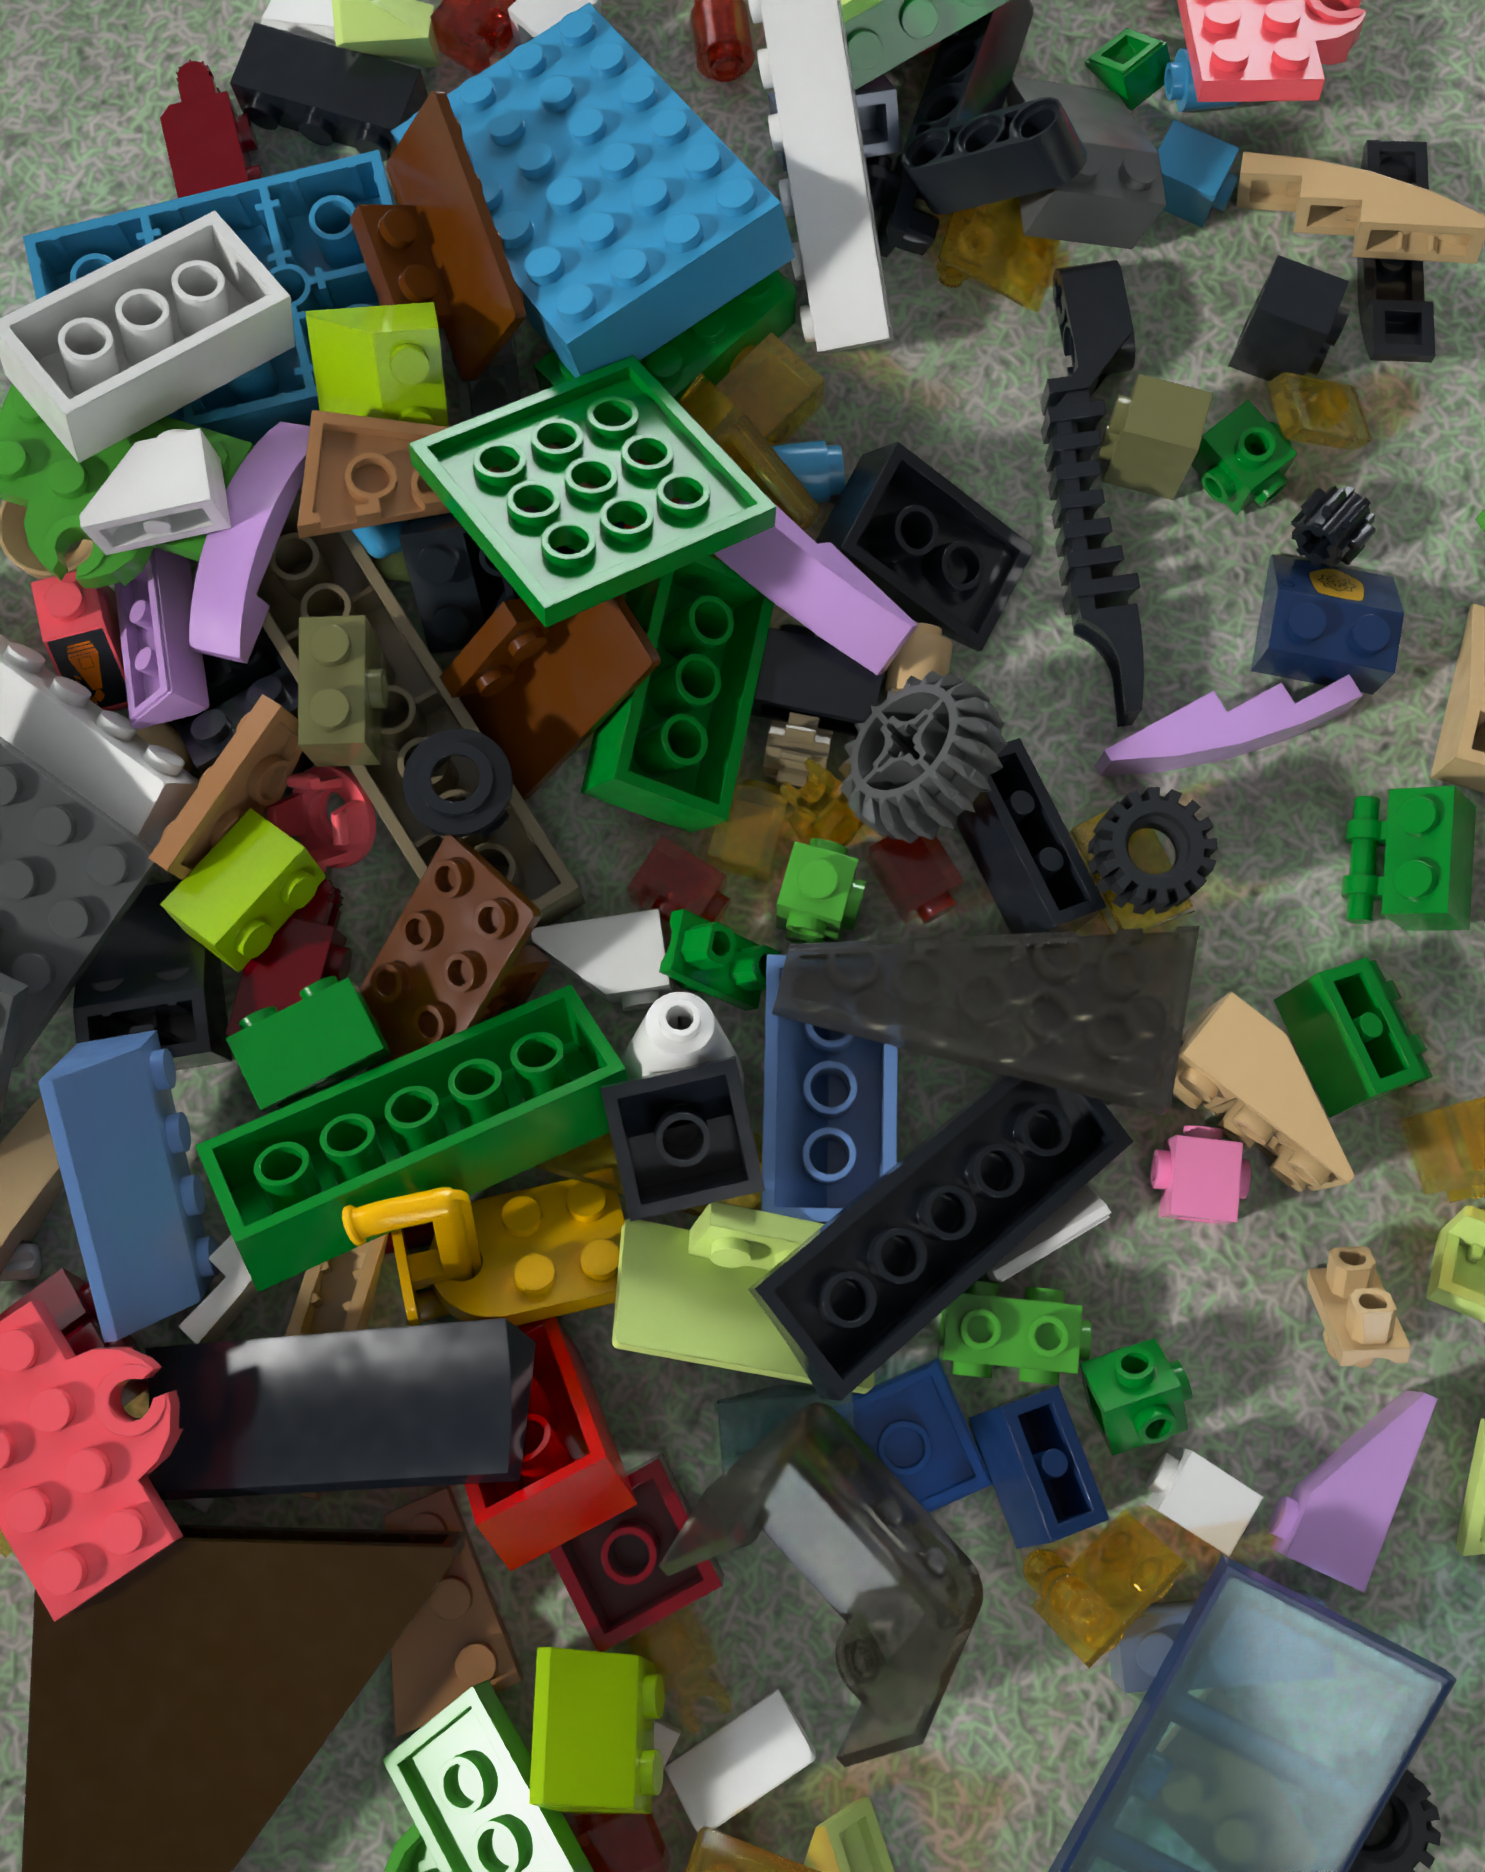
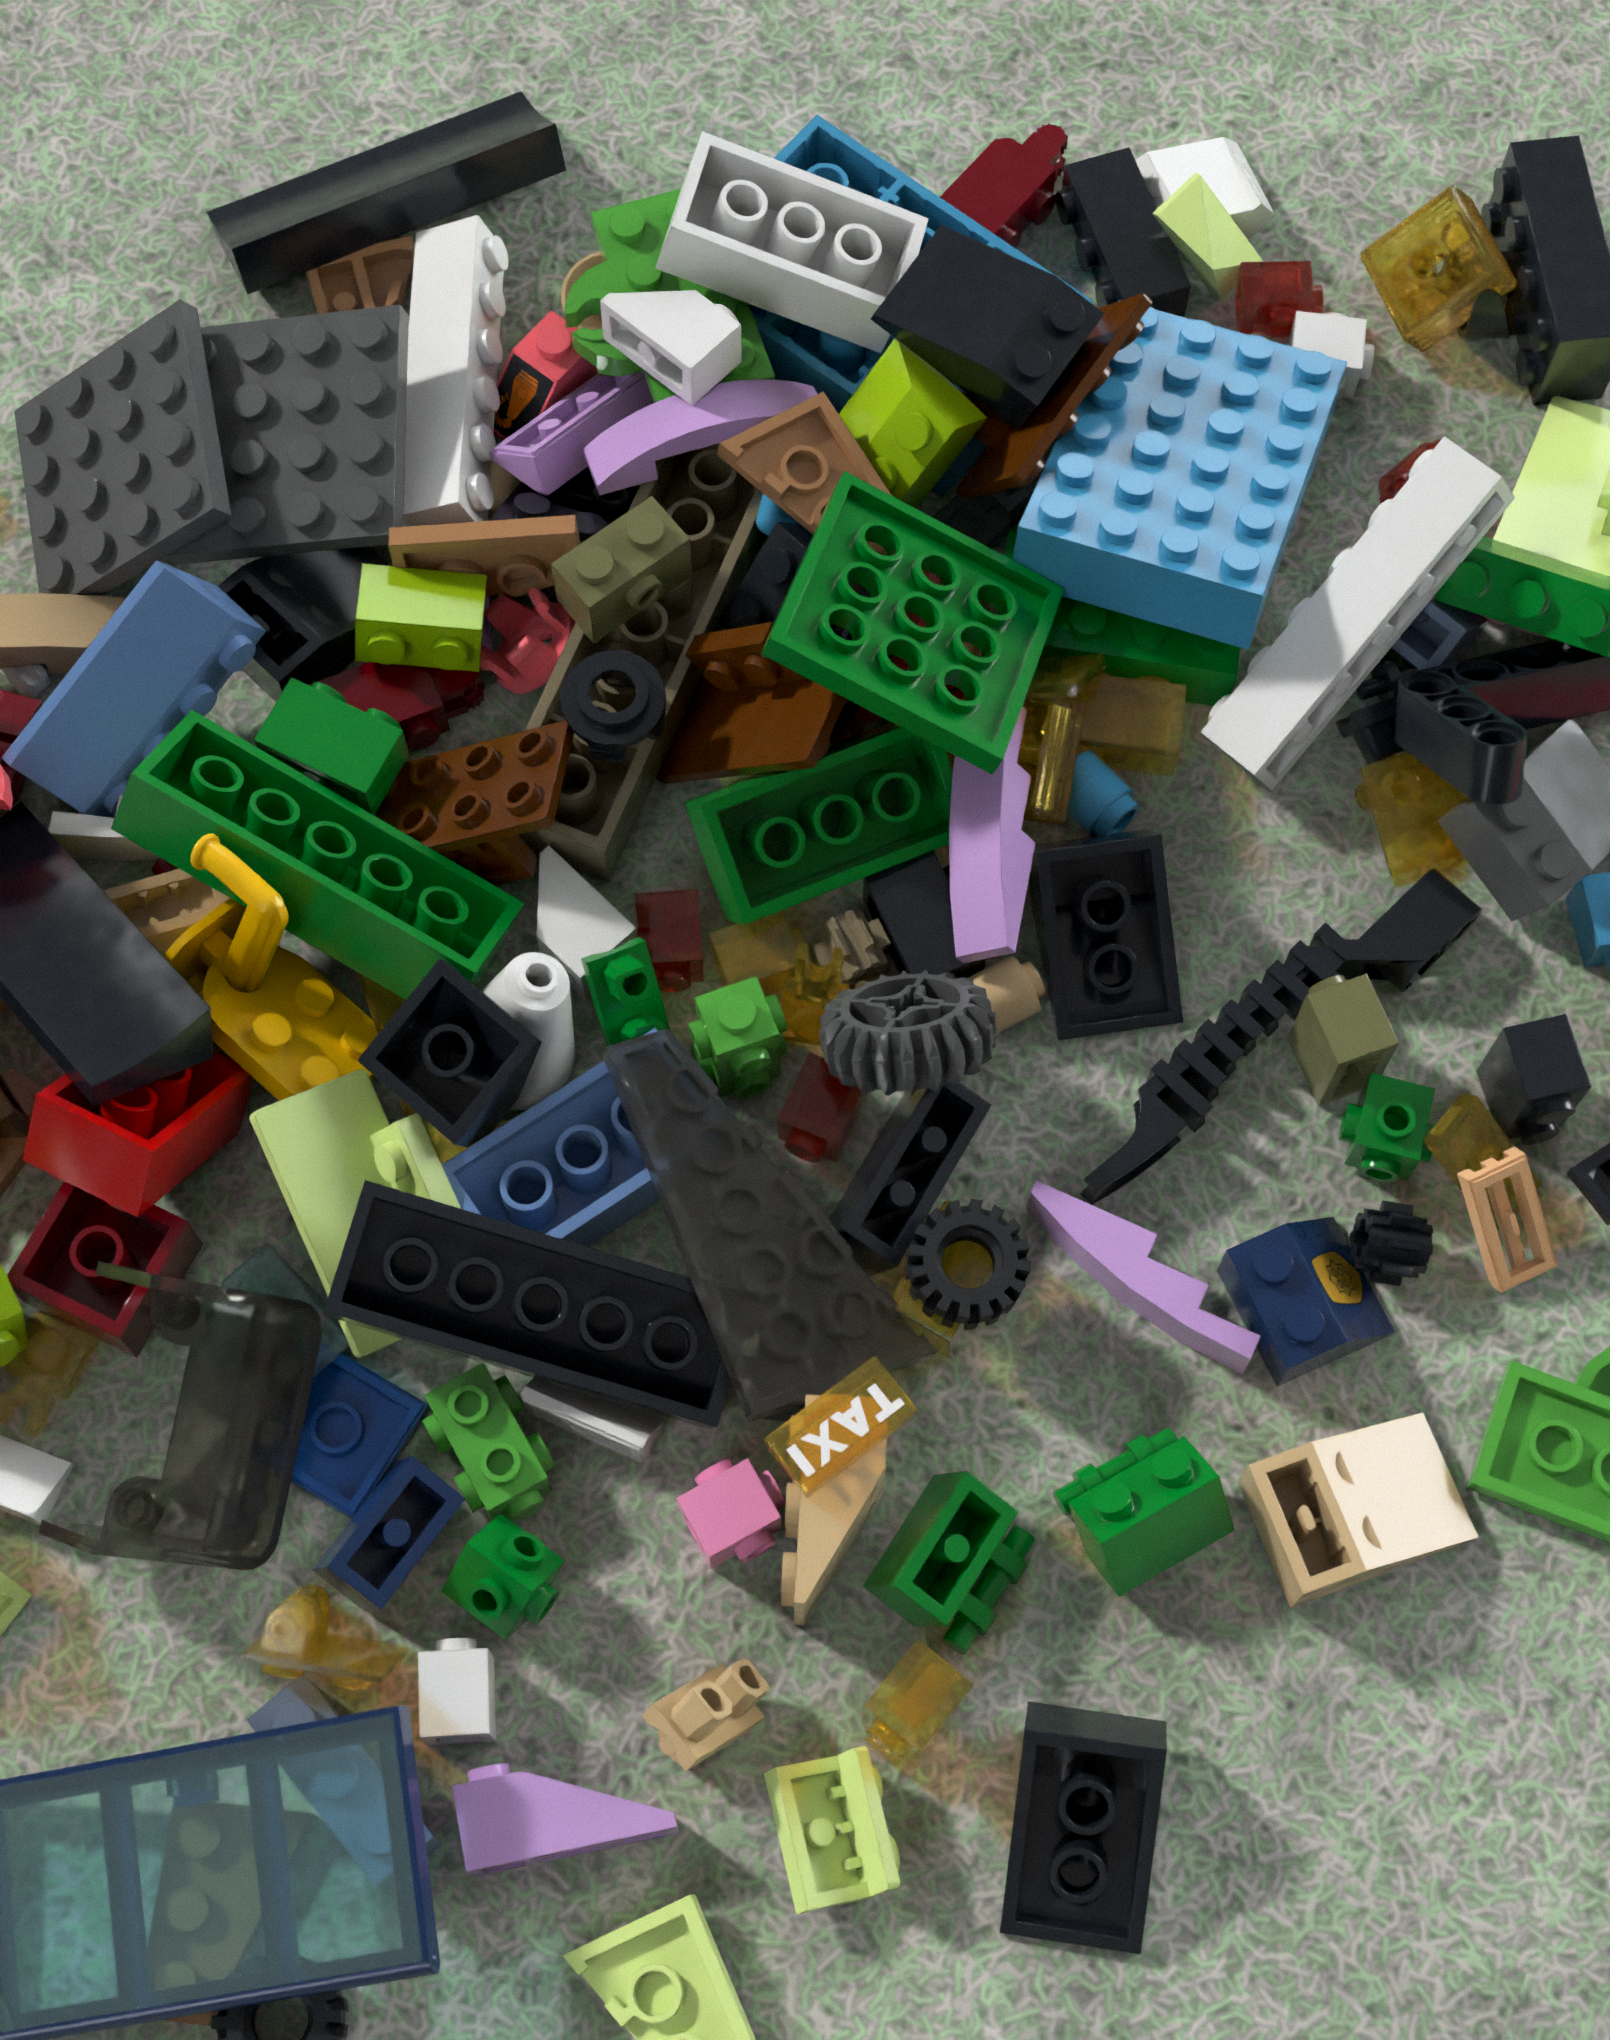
camera: 50 degrees right, 10 degrees down
(358, 231) = (987, 322): none -> black slope
(1235, 1045) = (840, 1426): none -> clear yellow tile
(1375, 438) = (1473, 1188): none -> light nougat tile

